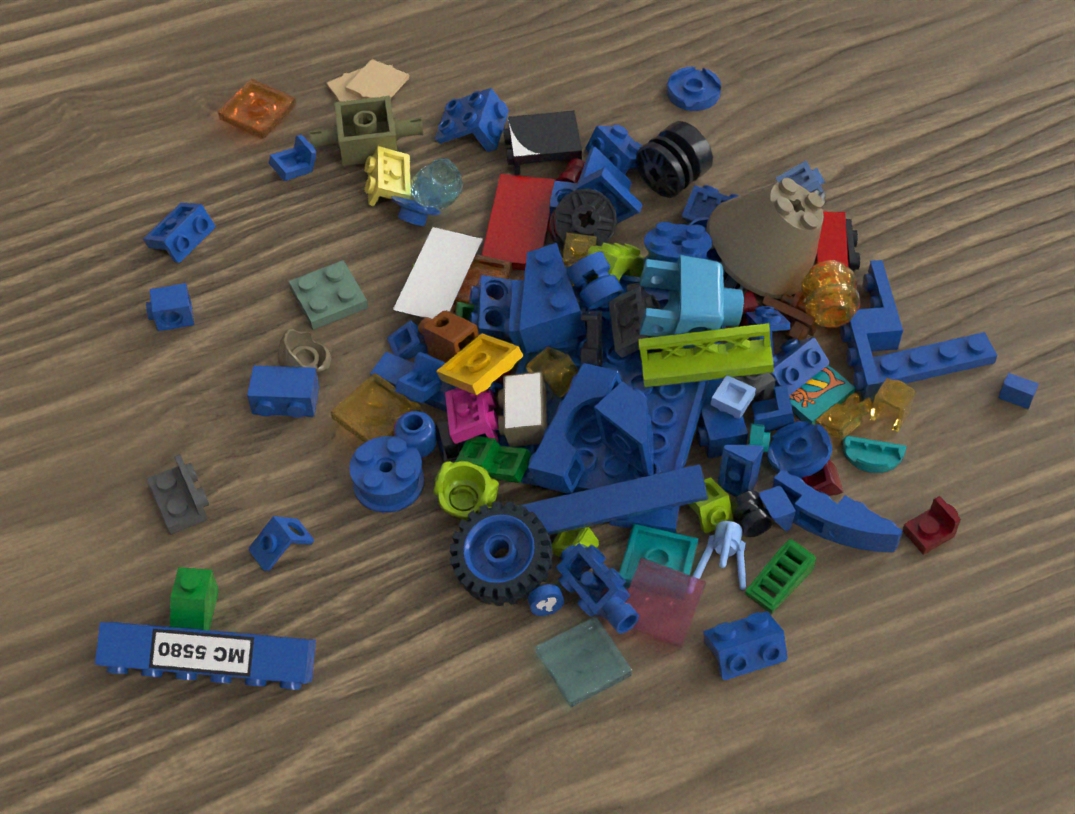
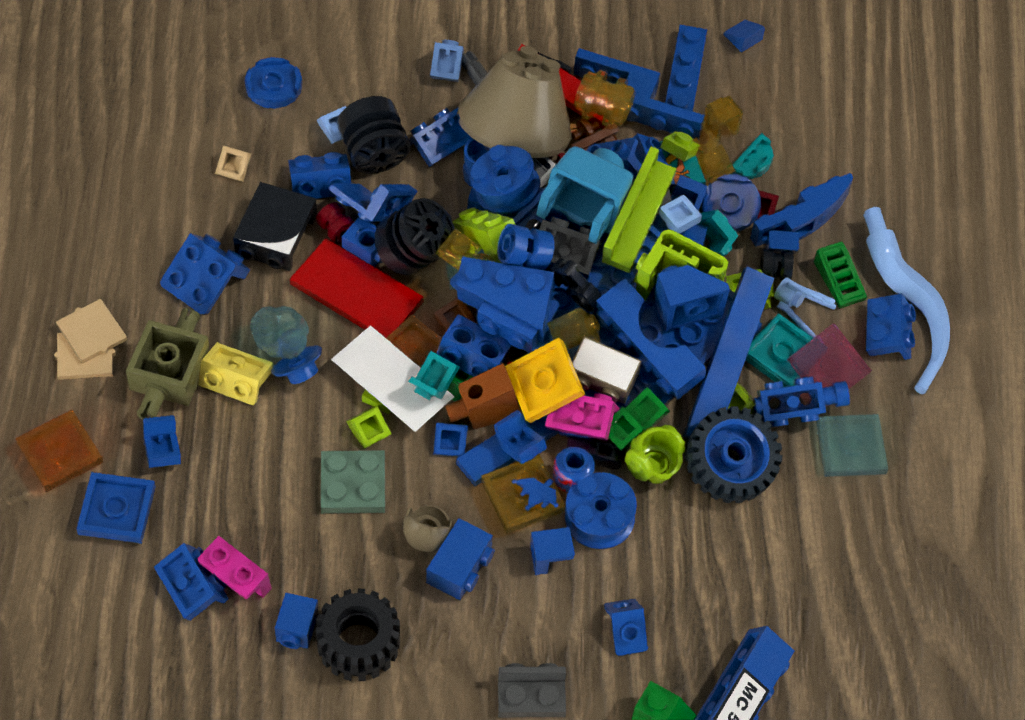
camera: 70 degrees left, 5 degrees up
(167, 331) = (355, 610): none -> black tyre
(196, 247) = (235, 569): none -> dark pink bracket
(223, 160) = (116, 507): none -> blue plate
(324, 448) = (550, 547): none -> blue panel
(376, 417) = (537, 492): none -> blue piece
(387, 283) = (369, 427): none -> lime slope
(445, 294) = (434, 376): none -> teal bracket
(545, 600) = (787, 444): blue tile -> none
(592, 95) = (233, 163): none -> tan slope
(663, 397) = (676, 250): none -> lime piece
(740, 468) = (742, 248): blue slope -> none
(809, 651) = (914, 287): none -> light blue animal
(830, 379) = (680, 145): none -> lime plate
(933, 526) = (843, 154): dark red bracket -> none

